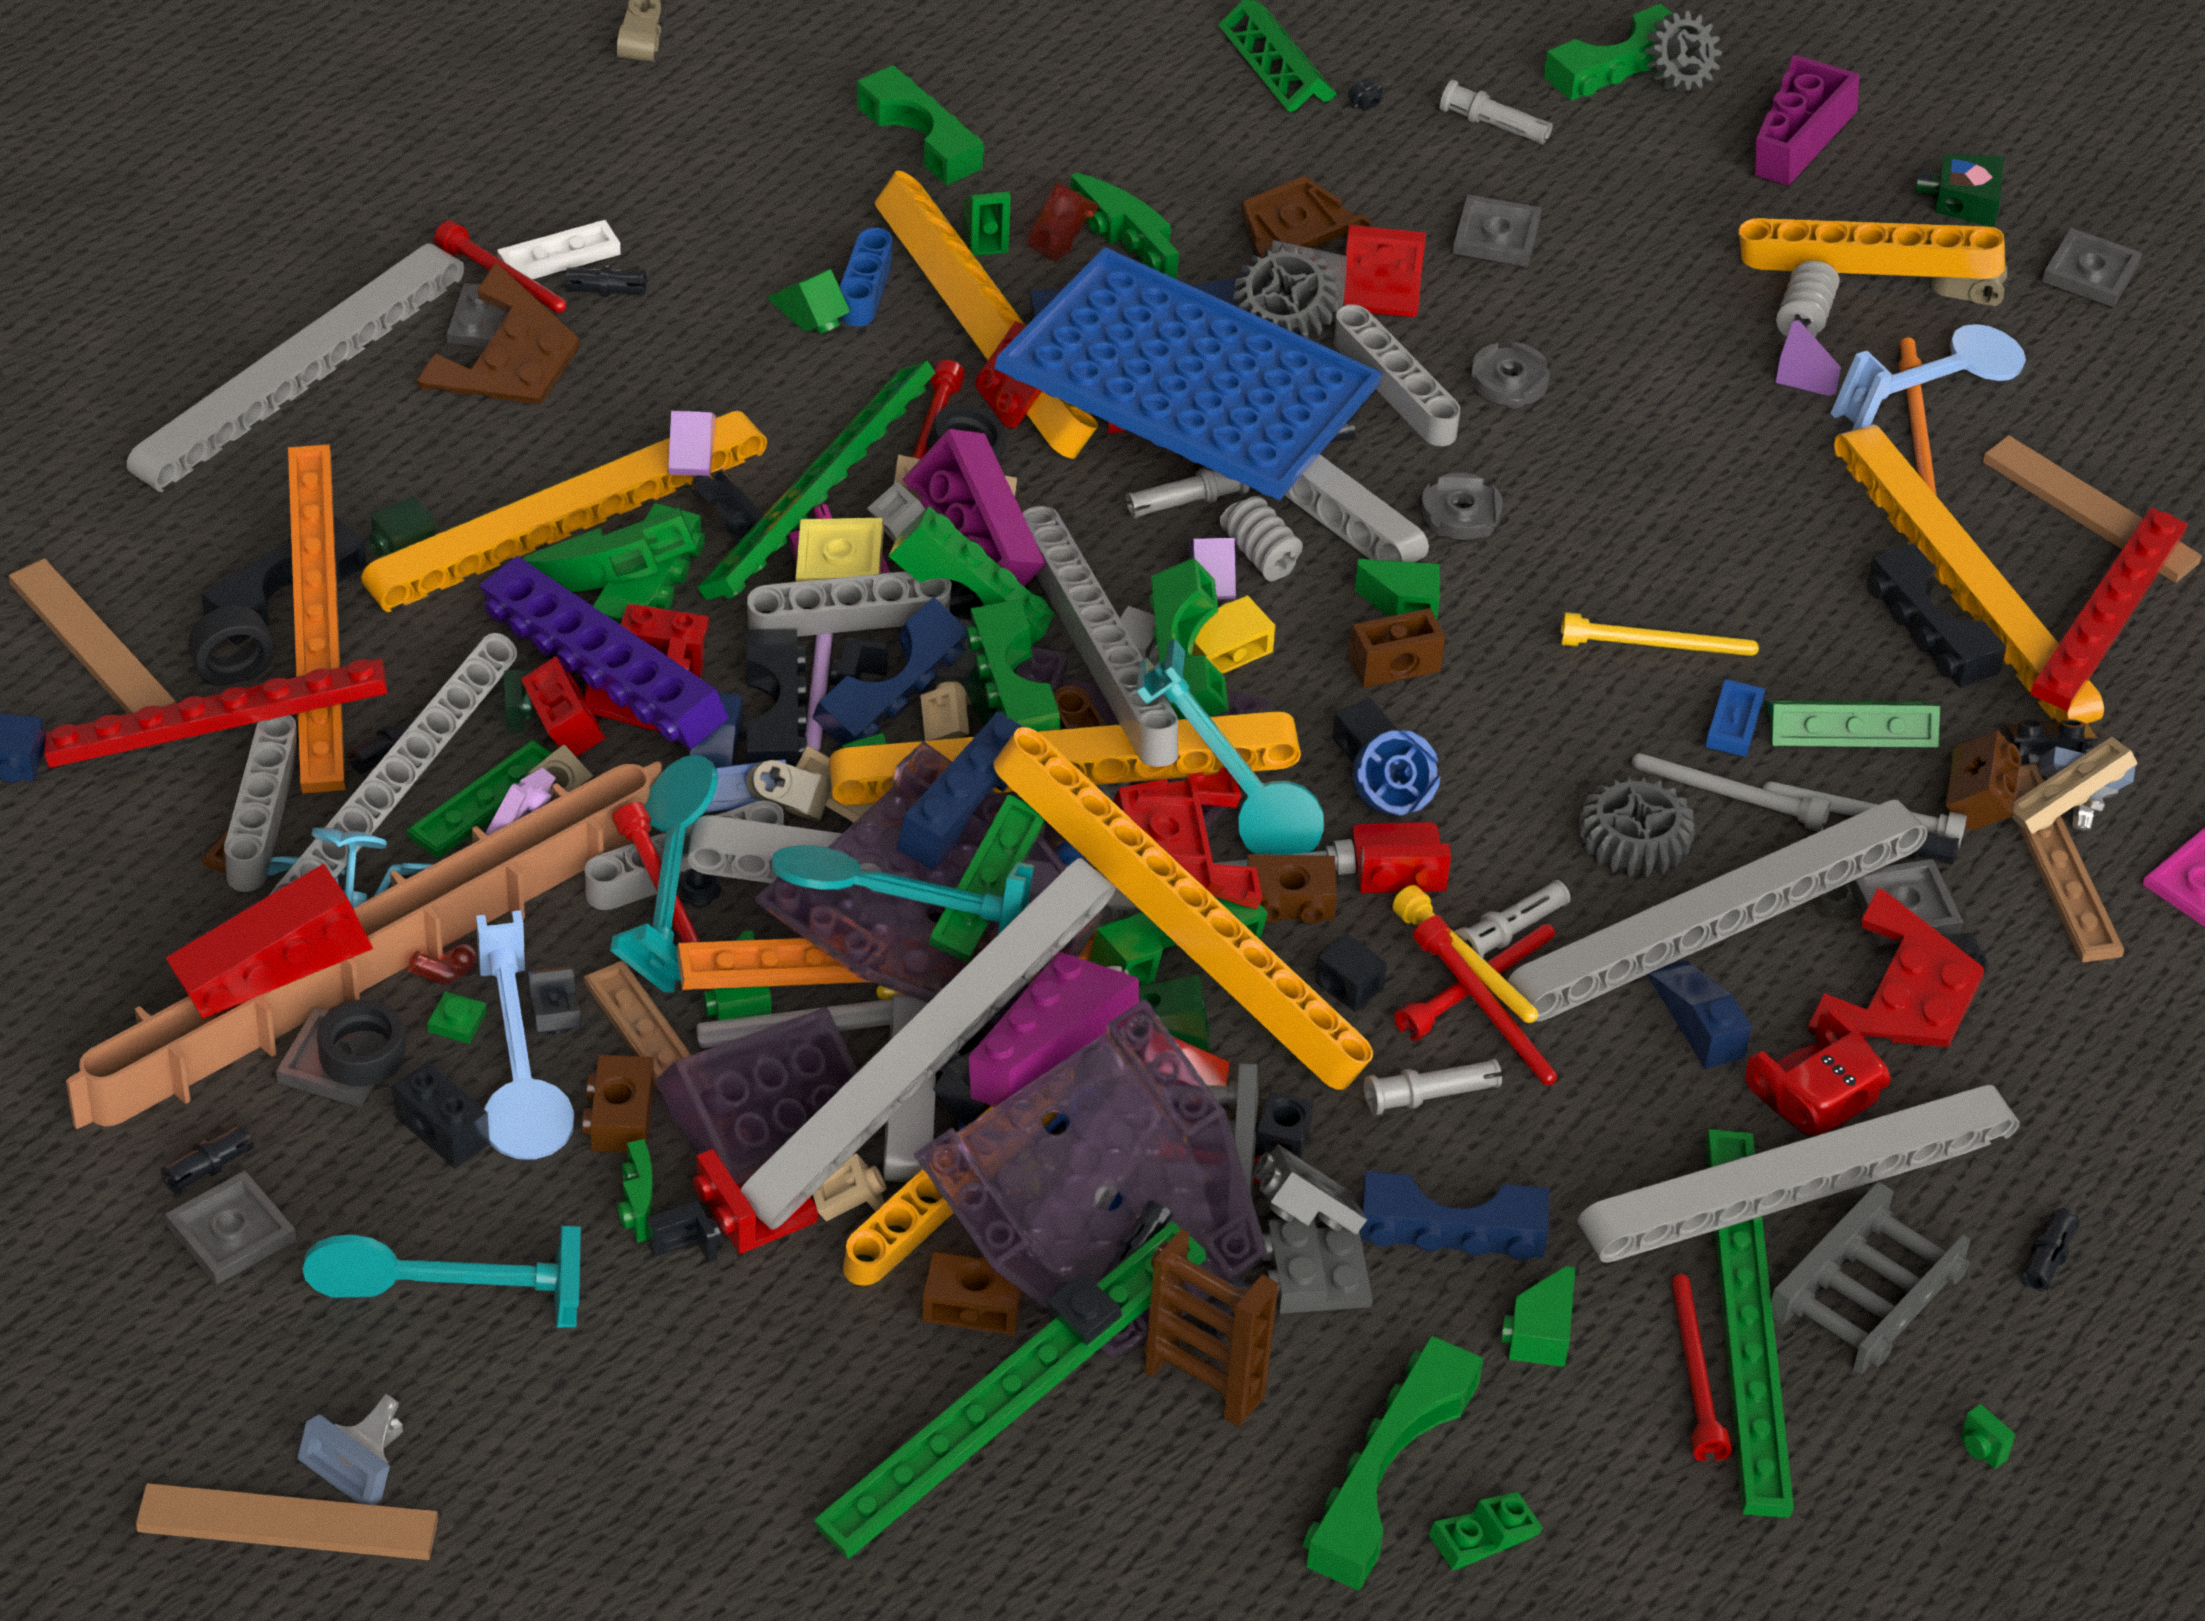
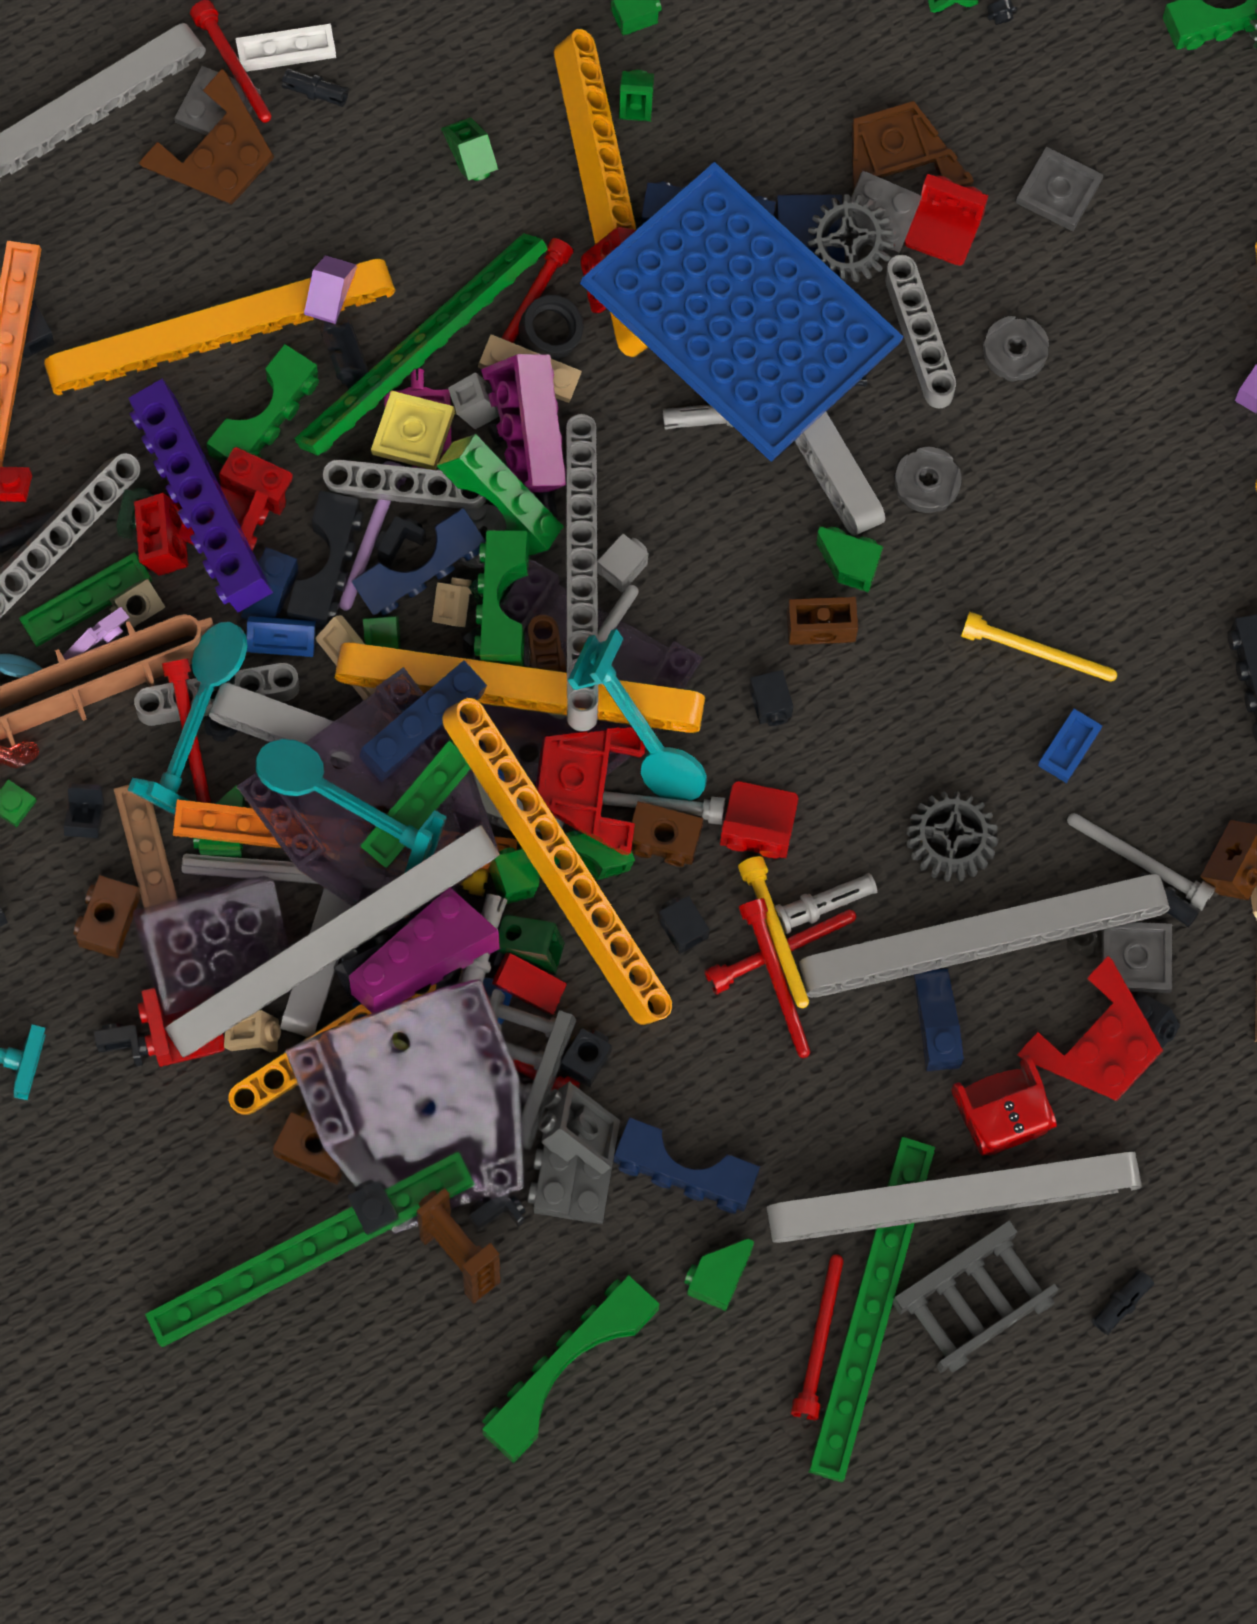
camera: 15 degrees right, 25 degrees up
(400, 526) = (86, 321): clear green brick -> none
(528, 1114) = (41, 906): light blue piece -> none
(617, 557) = (243, 398): green slope -> none
(637, 1190) = (98, 1005): green slope -> none
(796, 791) = (314, 655): dark tan piece -> none
(866, 275) = (526, 118): blue beam -> none
(1060, 222) = (698, 107): clear red leg -> none
(1129, 220) = (753, 112): green slope -> none
(1151, 1222) = (435, 1152): black pin -> none
(1182, 604) = (658, 553): green arch -> none
(1218, 558) = (708, 496): slope -> none
(1235, 635) = (693, 575): yellow brick -> none
(1262, 537) = (754, 481): light grey piece -> none
(1396, 773) = (777, 749): blue cylinder -> none
(1412, 1088) = (696, 1041): light grey pin -> none
(1480, 107) = (1092, 47): light grey pin -> none
(1491, 1528) = (618, 1438): green slope -> none
(1809, 811) = (1093, 851): light grey piece -> none
(1853, 723) = (1162, 772): fence -> none
(1987, 1437) = (1007, 1457): green plate -> none

